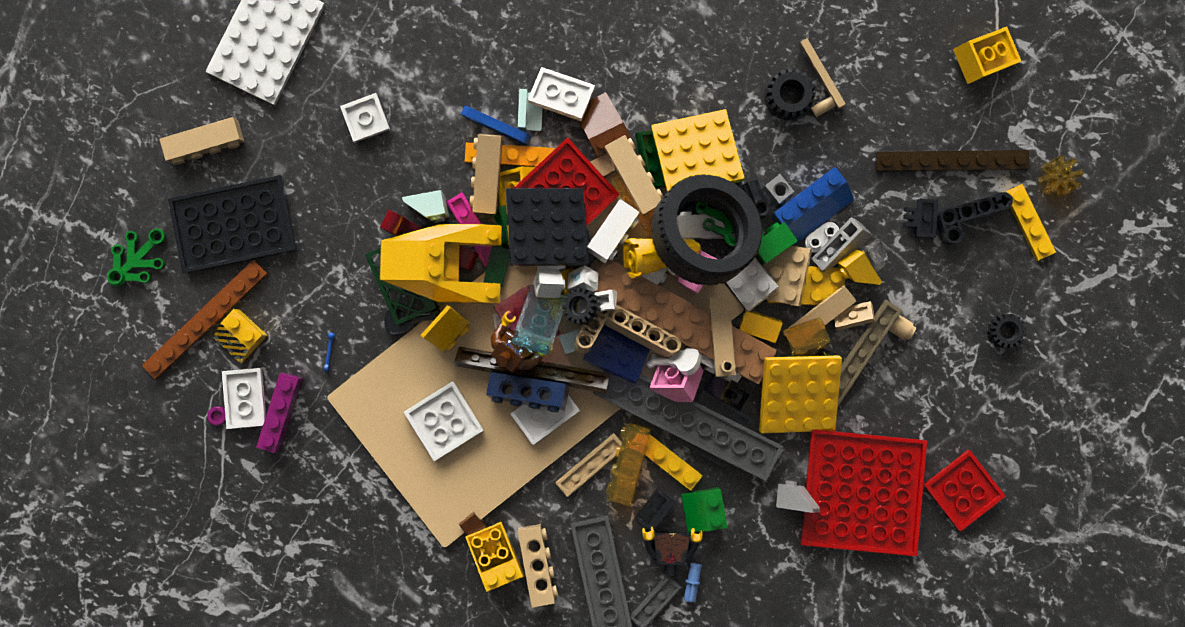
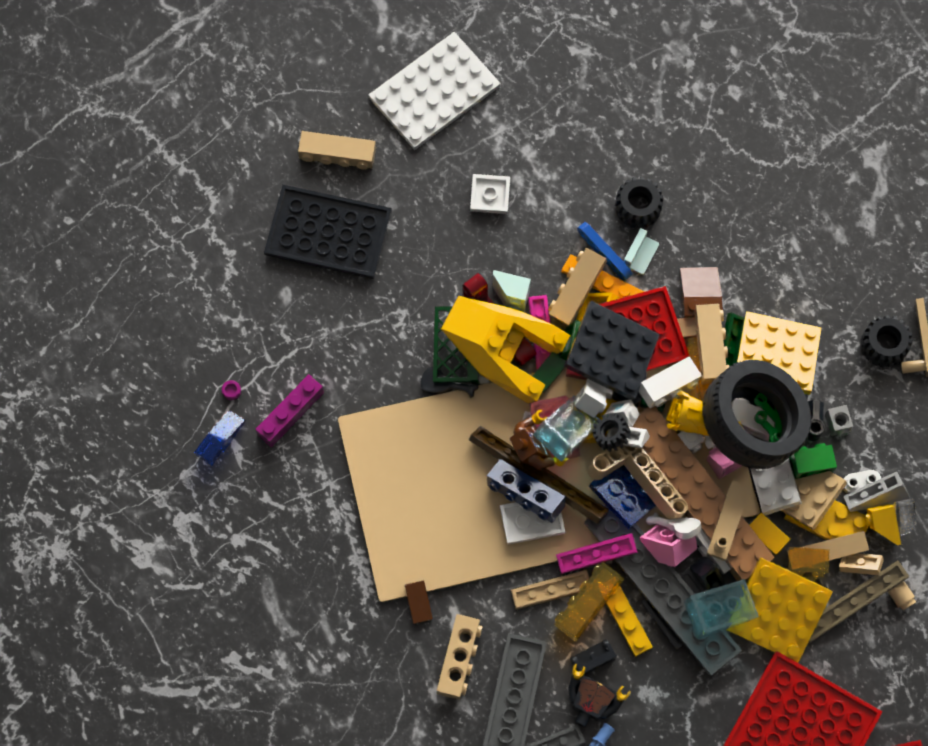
camera: 25 degrees right, 15 degrees down
(134, 259) = (226, 223): green plant -> none
(205, 319) = (262, 302): dark orange plate -> none
(228, 466) = (219, 437): none -> clear blue slope
(239, 335) = (286, 328): yellow slope -> none
(244, 398) = (263, 384): white plate -> none
(331, 336) = (367, 367): blue hinge -> none
(443, 421) = (435, 485): white plate -> none
(446, 329) = (478, 401): yellow slope -> none
(494, 556) = (423, 630): yellow slope -> none
(501, 48) = (641, 188): none -> black tyre
(561, 94) = (676, 249): white plate -> none
(568, 341) = (582, 465): light grey brick -> none
(617, 417) = (596, 553): none -> dark pink tile
(704, 510) = (641, 678): green slope -> none
(750, 421) = (720, 608): none -> clear light blue slope
(795, 498) = (731, 705): light grey slope -> none
(815, 204) = (868, 448): blue slope -> none

